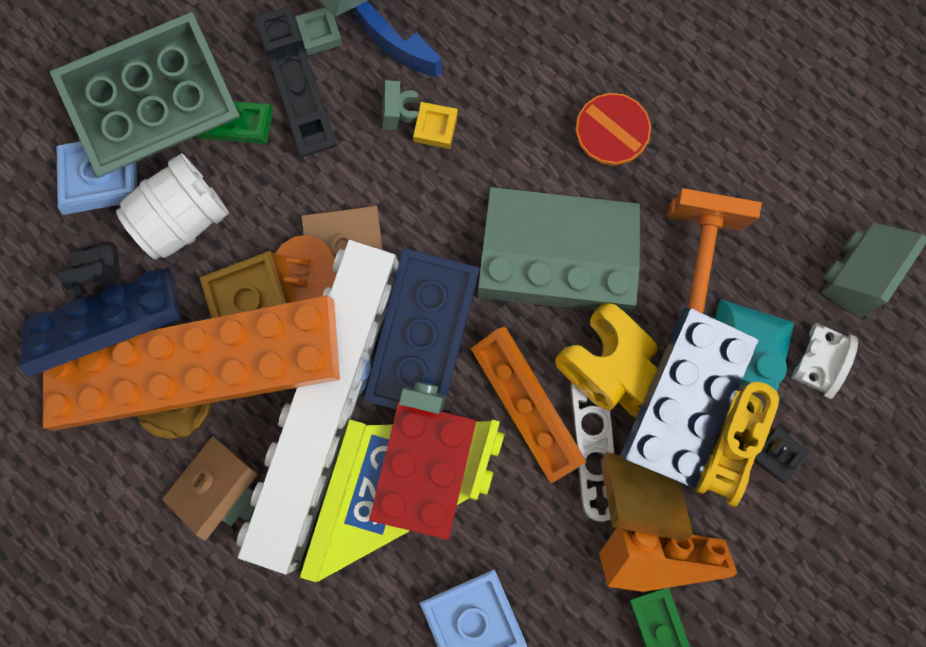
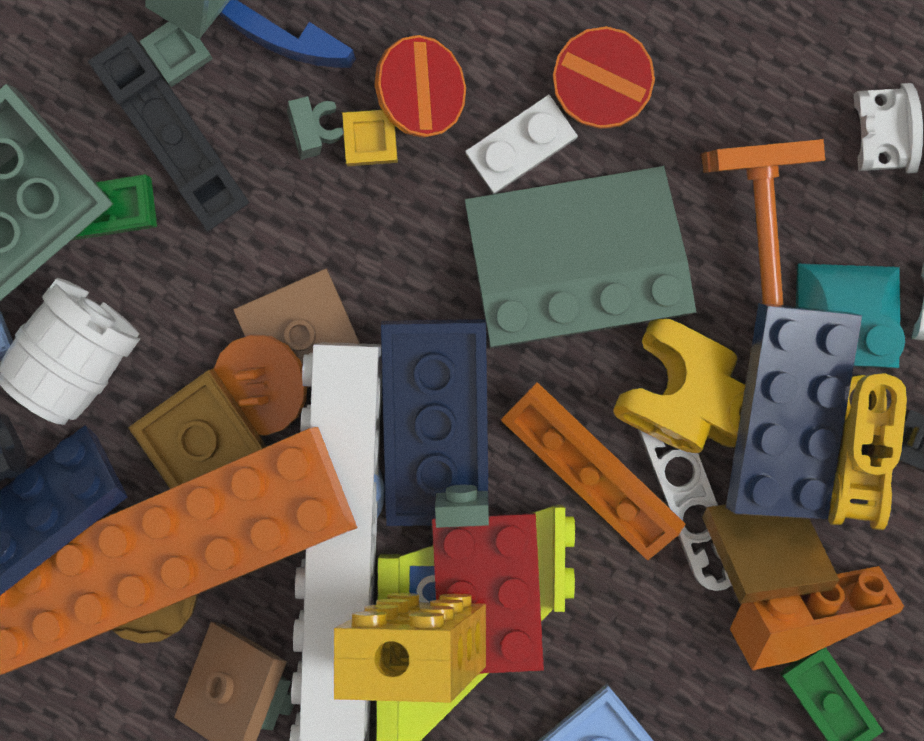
camera: 15 degrees left, 10 degrees up
(350, 472) = (410, 649): none -> yellow brick
(481, 99) = (420, 86): none -> red piece
(541, 160) = (521, 144): none -> white plate
(810, 223) = (890, 129): none -> white piece

